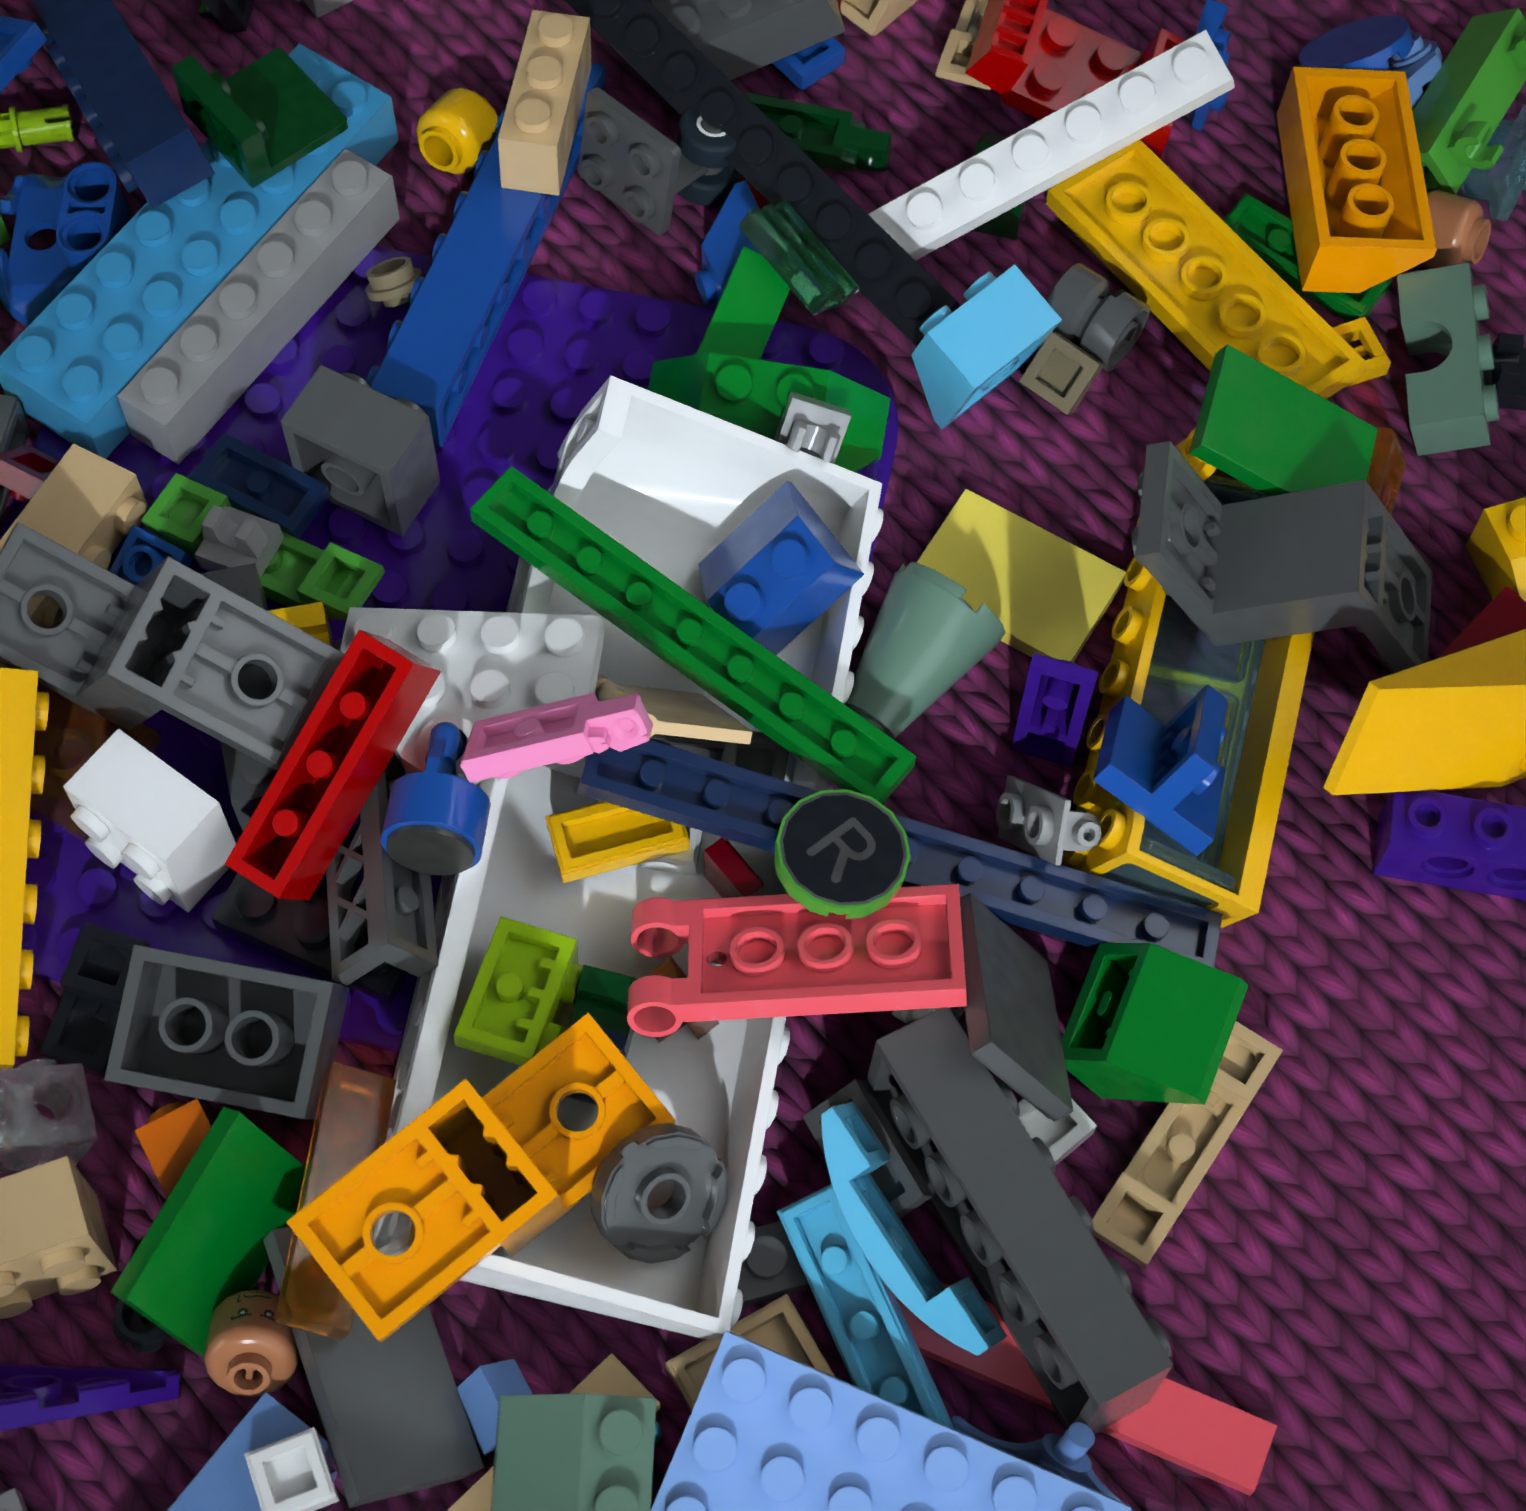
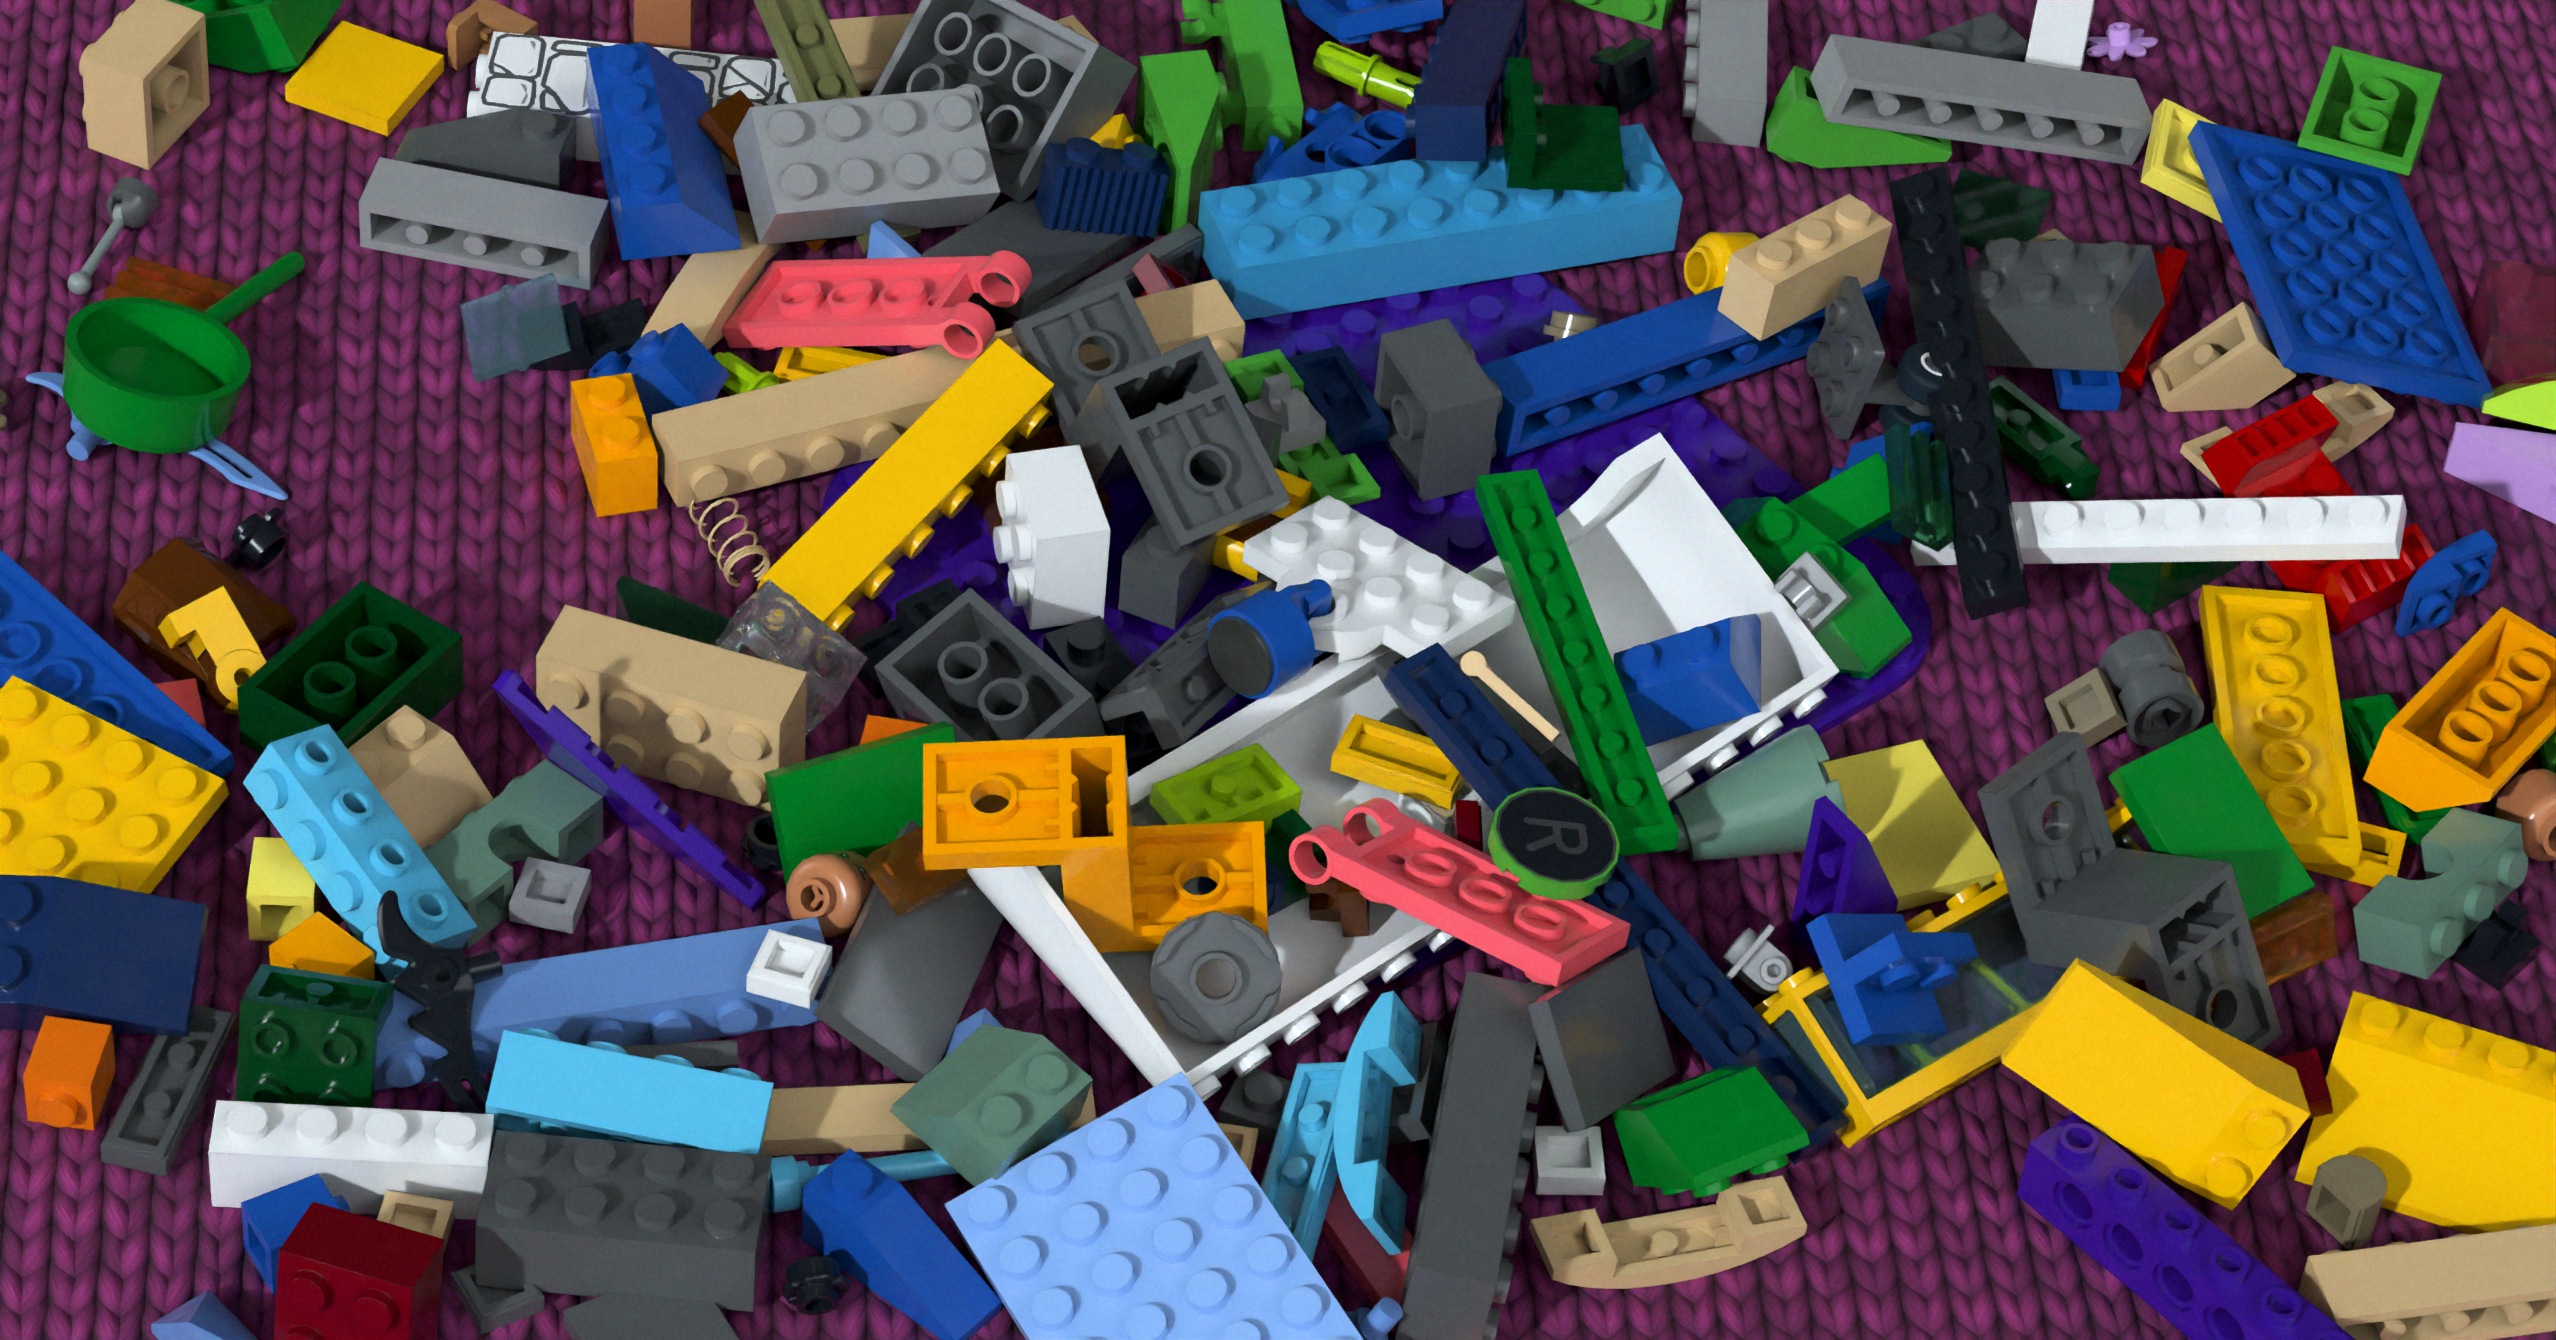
camera: 35 degrees right, 20 degrees down
(260, 306) = (1458, 277): light grey brick -> none
(332, 767) = (1215, 561): red brick -> none
(553, 734) = (1400, 622): bright pink hinge -> none
(980, 342) = (2018, 635): medium azure slope -> none

